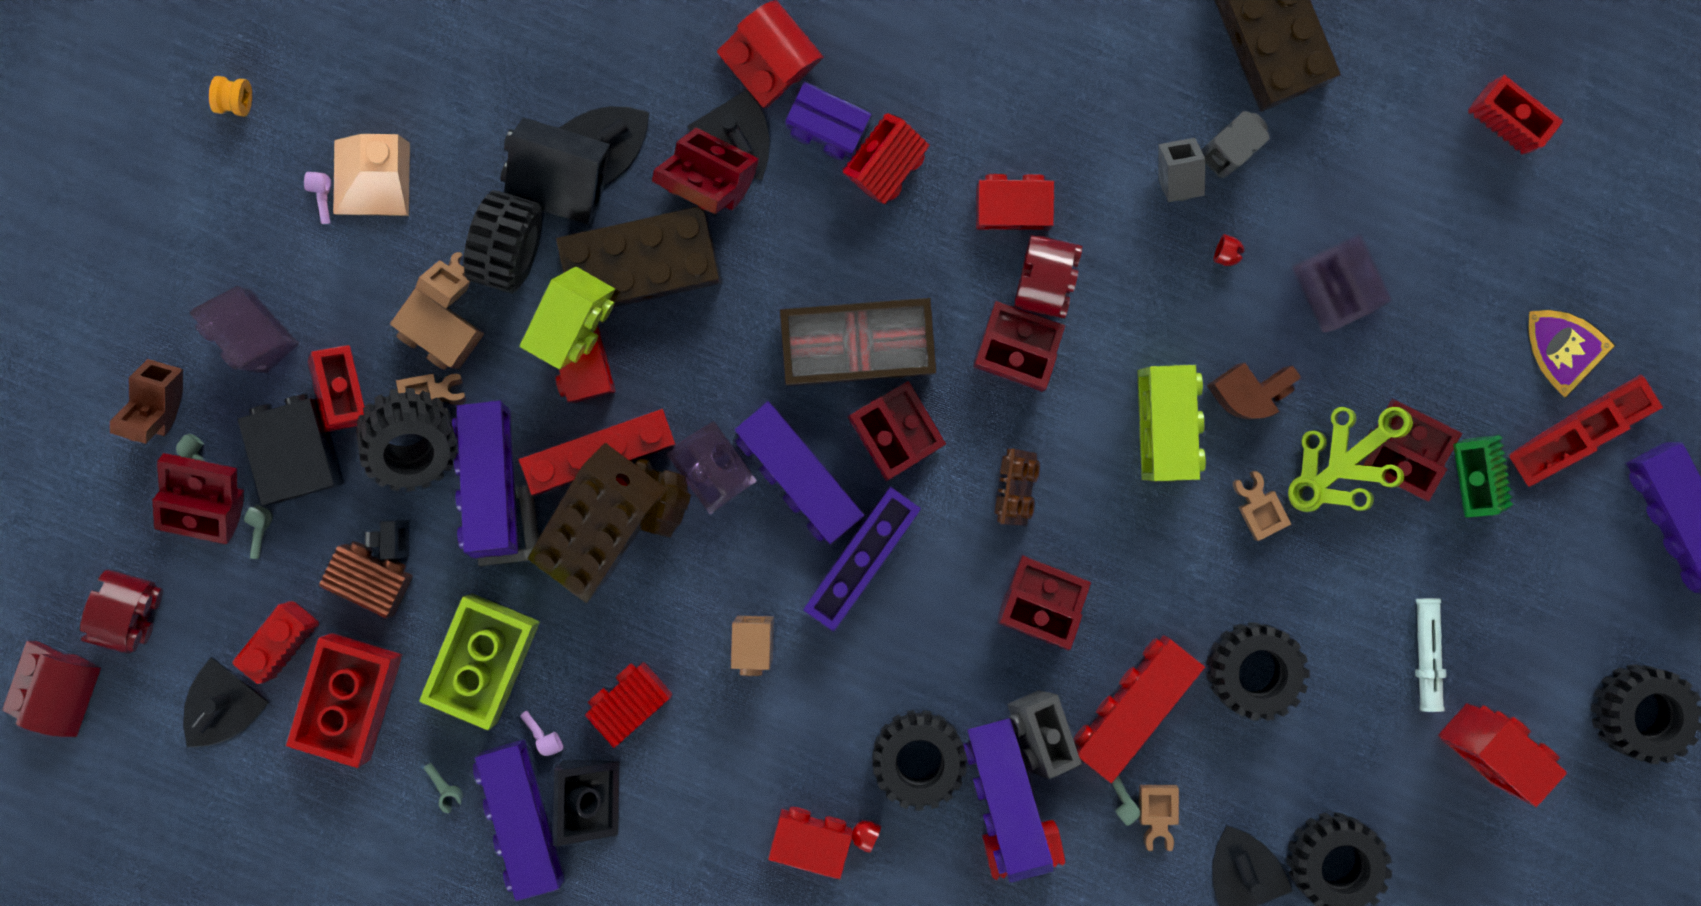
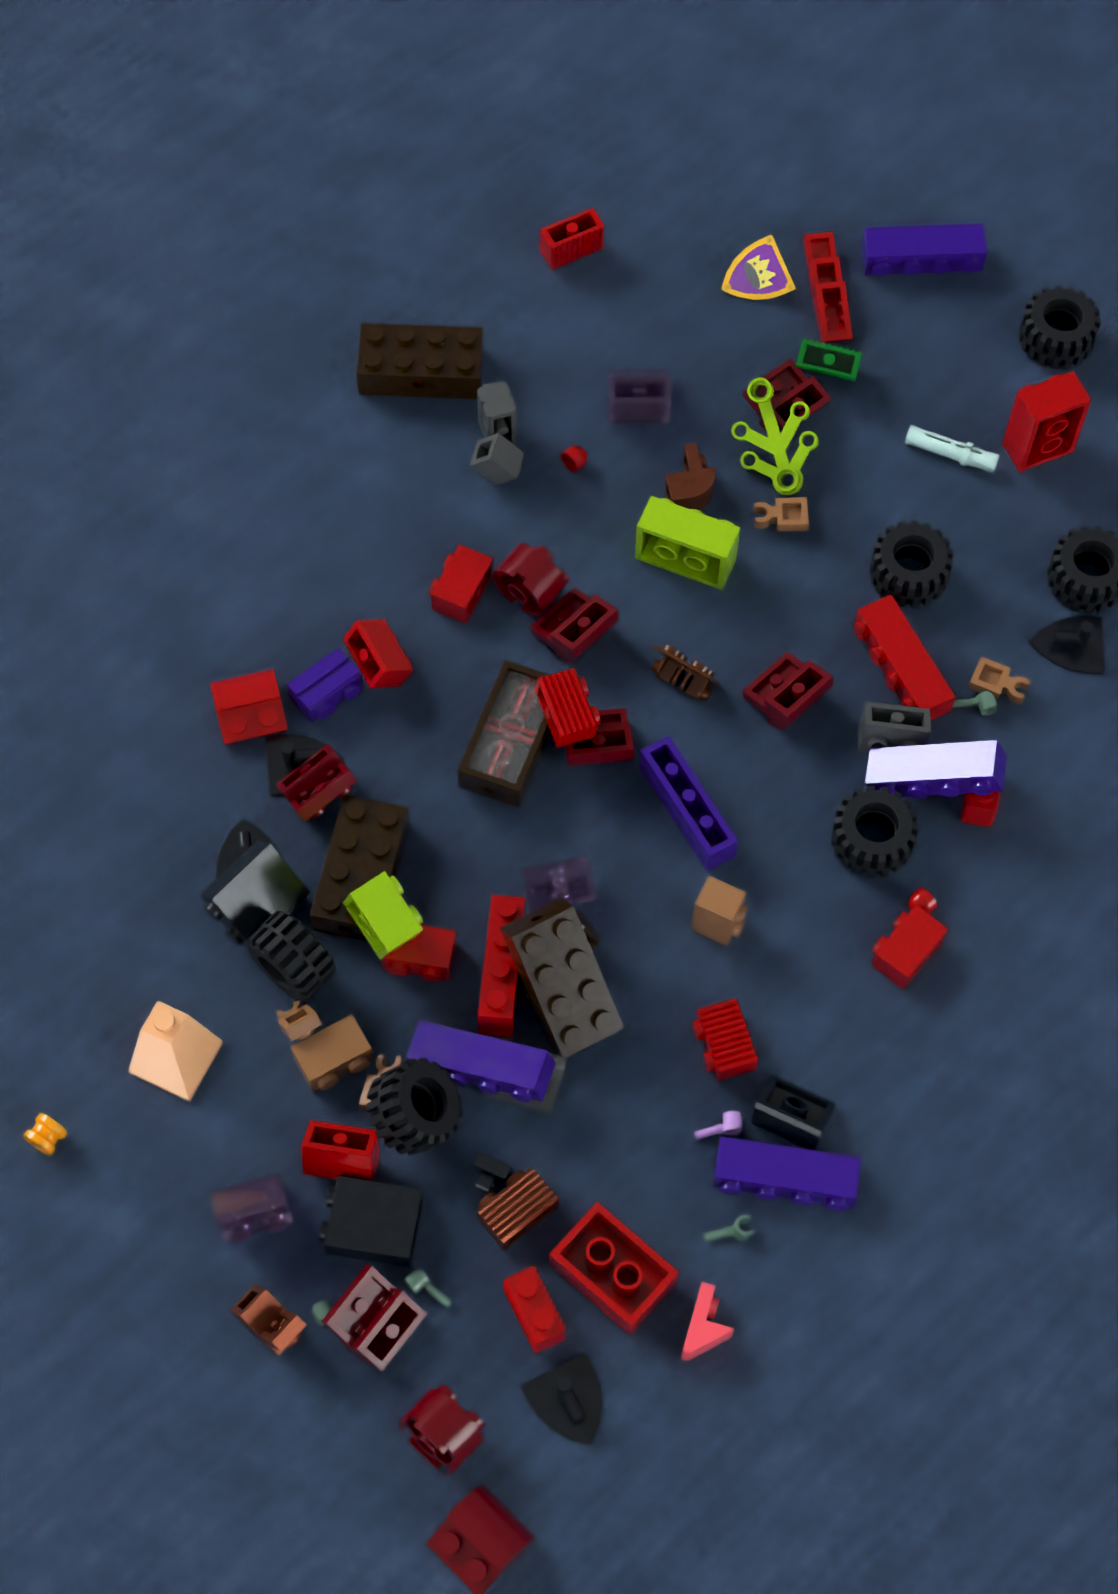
camera: 70 degrees left, 25 degrees down
(320, 184) = (157, 1098): lavender hand -> none
(327, 806) = (702, 1333): none -> coral slope
(479, 661) = (633, 1138): lime brick -> none
(799, 473) = (595, 825): dark purple brick -> none
(897, 392) = (567, 707): none -> red brick

